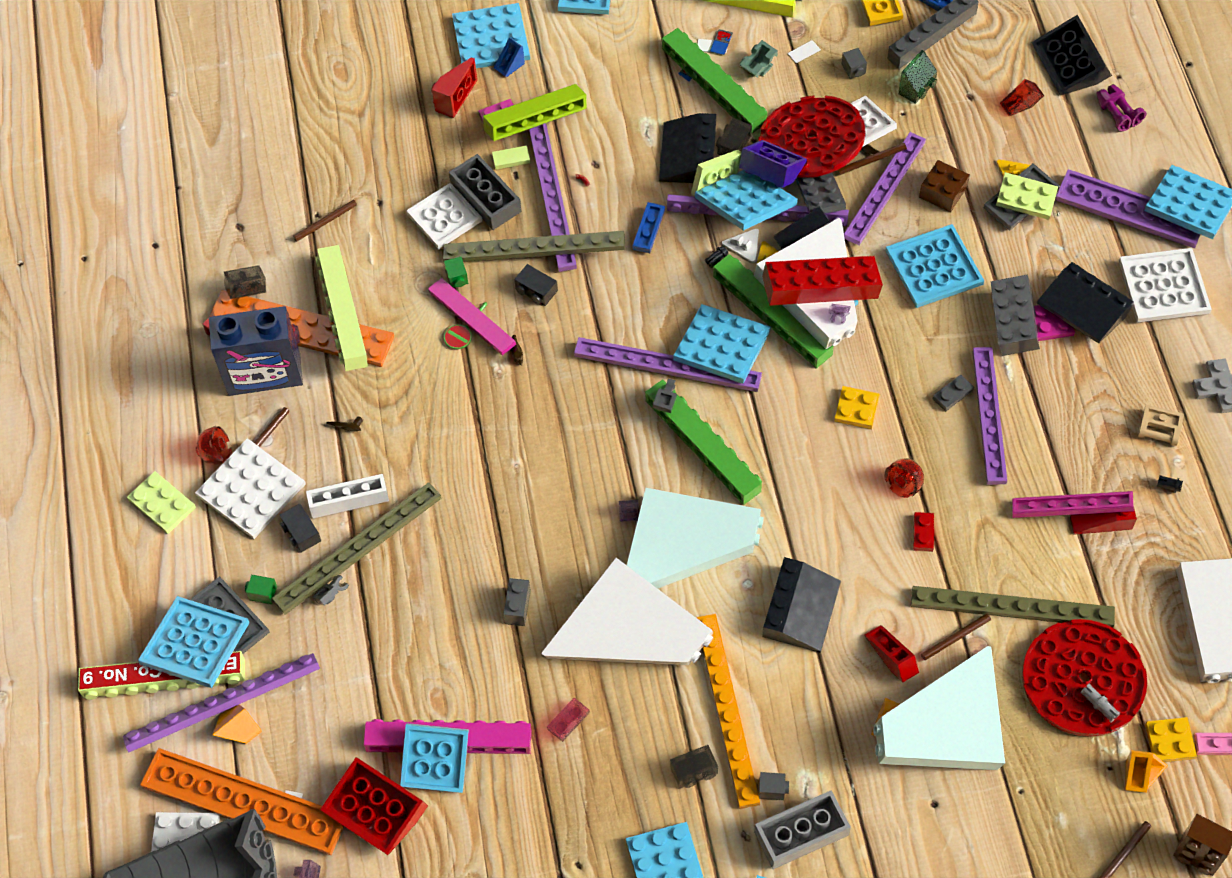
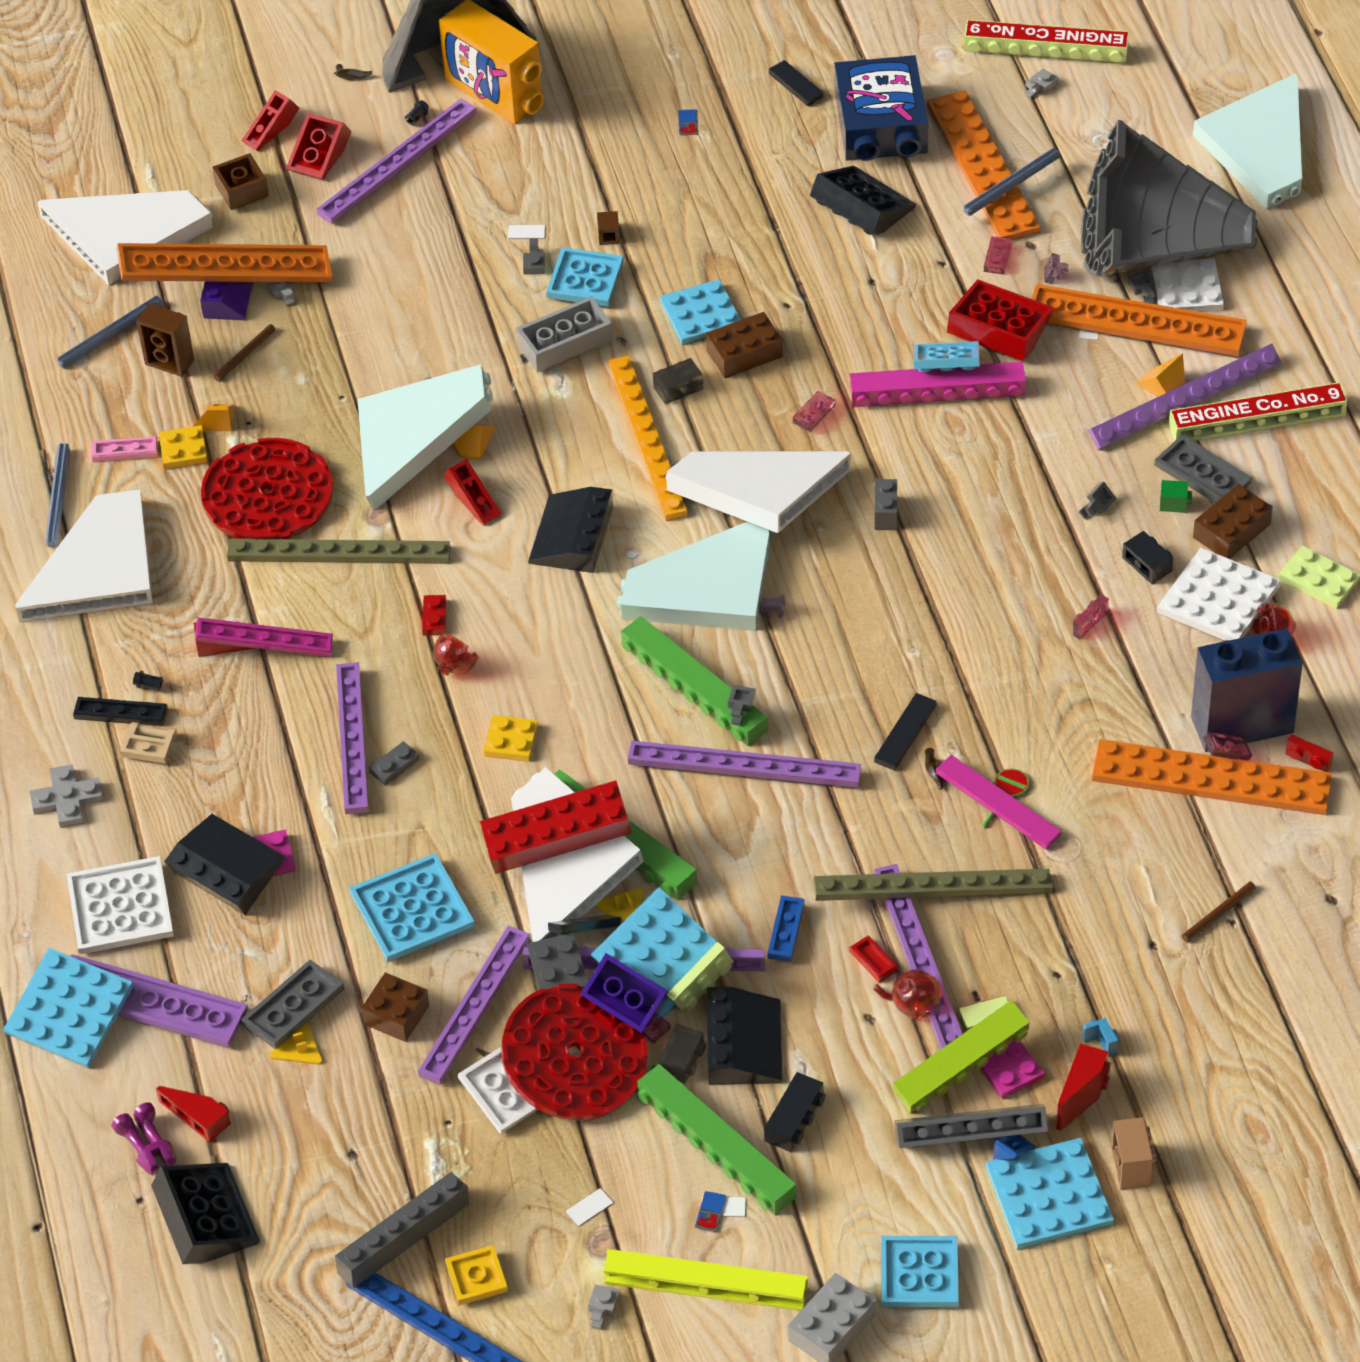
camera: 175 degrees right, 10 degrees down
(194, 641) = (1229, 427): medium azure plate -> none
(218, 554) = (1232, 522): none -> reddish brown brick
(244, 282) = (1296, 808): clear smoke brick -> none
(342, 308) = (1163, 785): yellowish green brick -> none
(347, 496) = (1111, 581): white brick -> none
(349, 426) = (1123, 669): dark brown bar -> none
(356, 548) = (1076, 546): olive plate -> none
(367, 469) = (1090, 617): none -> clear pink plate
(429, 42) = (1132, 1153): none -> medium nougat brick
(433, 135) = (1101, 1029): none -> dark azure bracket
(444, 216) = (1060, 924): white plate -> none
(456, 272) = (1028, 850): green brick -> none
(485, 191) = (1010, 948): dark grey brick -> none
(534, 386) = (905, 731): none -> black tile
(536, 71) = (970, 1125): none -> dark grey brick
(536, 285) = (922, 842): black brick -> none
(560, 162) = (916, 993): none -> clear red cylinder
(586, 204) = (873, 958): none -> red tile
(626, 803) = (744, 344): none -> reddish brown brick
(657, 94) = (794, 1112): none -> black brick
(717, 256) = (689, 901): black pin -> none
(722, 343) = (679, 788): medium azure plate -> none
(760, 60) = (656, 1169): sand green cylinder -> none
(773, 786) = (595, 371): dark grey brick -> none
(839, 310) = (533, 792): clear purple tile -> none
(854, 63) = (516, 1179): dark grey brick -> none
(870, 159) = (473, 1043): reddish brown bar -> none
(917, 78) = (427, 1154): clear green slope -> none
(955, 637) = (402, 518): reddish brown bar -> none
(1015, 315) = (313, 842): dark grey brick -> none
(1022, 98) = (279, 1142): clear red slope -> none
(1027, 196) = (286, 994): yellowish green plate -> none
(1086, 124) = (196, 1110): none -> red slope
(1100, 703) = (254, 457): light grey pin -> none
(1189, 460) = (120, 711): none -> black tile

